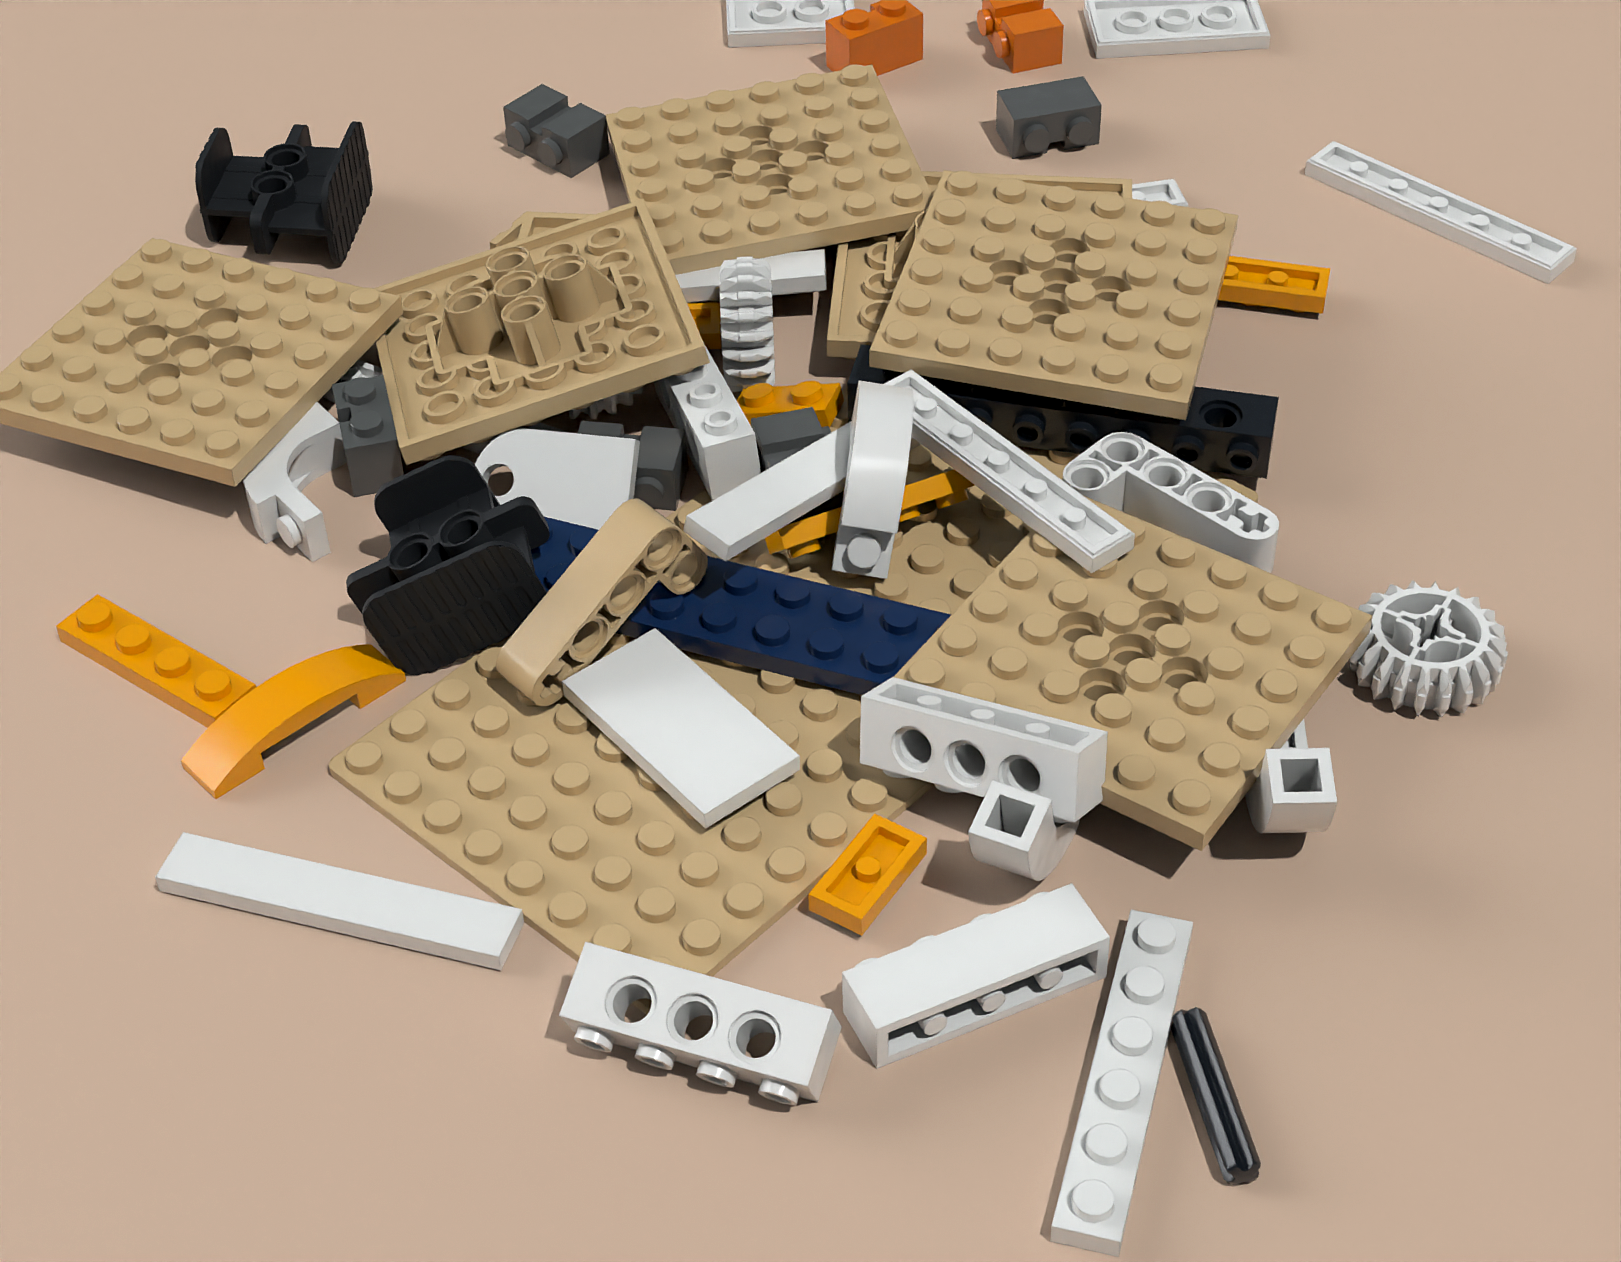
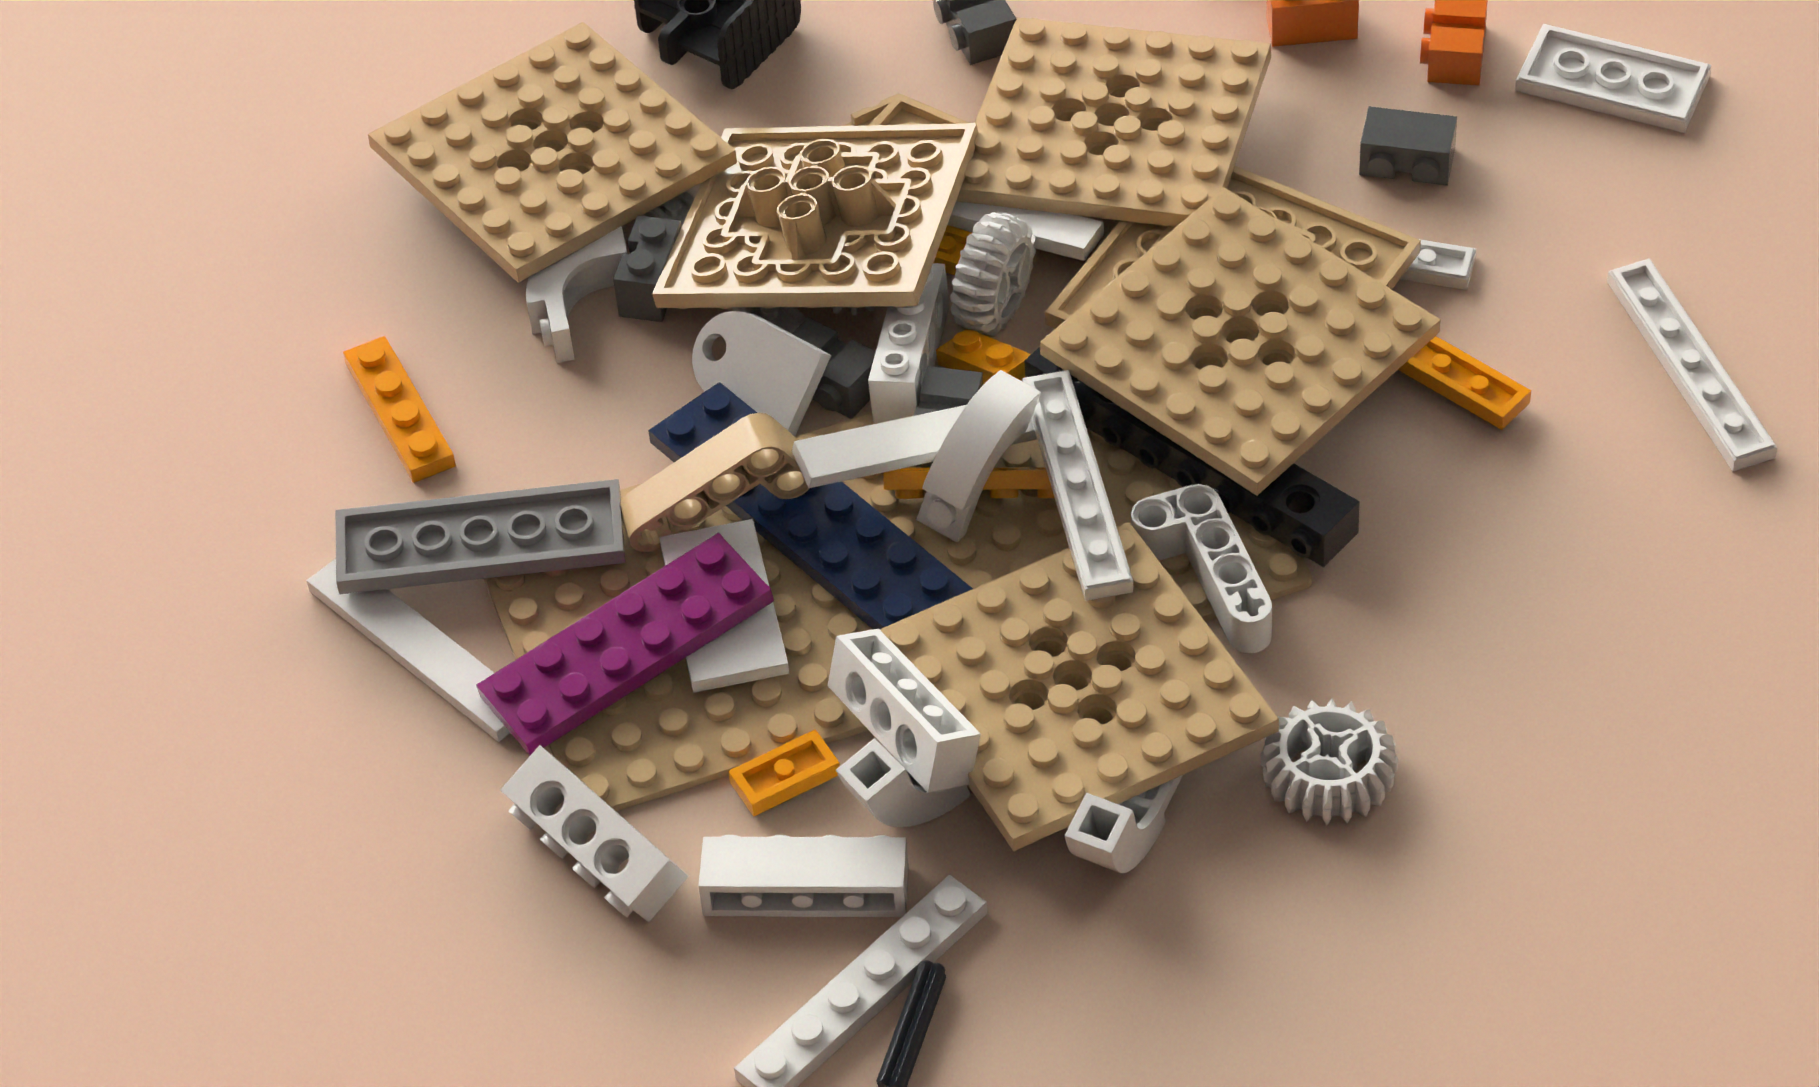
camera: 30 degrees right, 5 degrees up
(280, 706) = (476, 474): light orange slope -> none
(345, 755) = (479, 536): none -> light grey plate
(454, 567) = (633, 414): black piece -> none
(596, 807) = (624, 643): none -> magenta plate

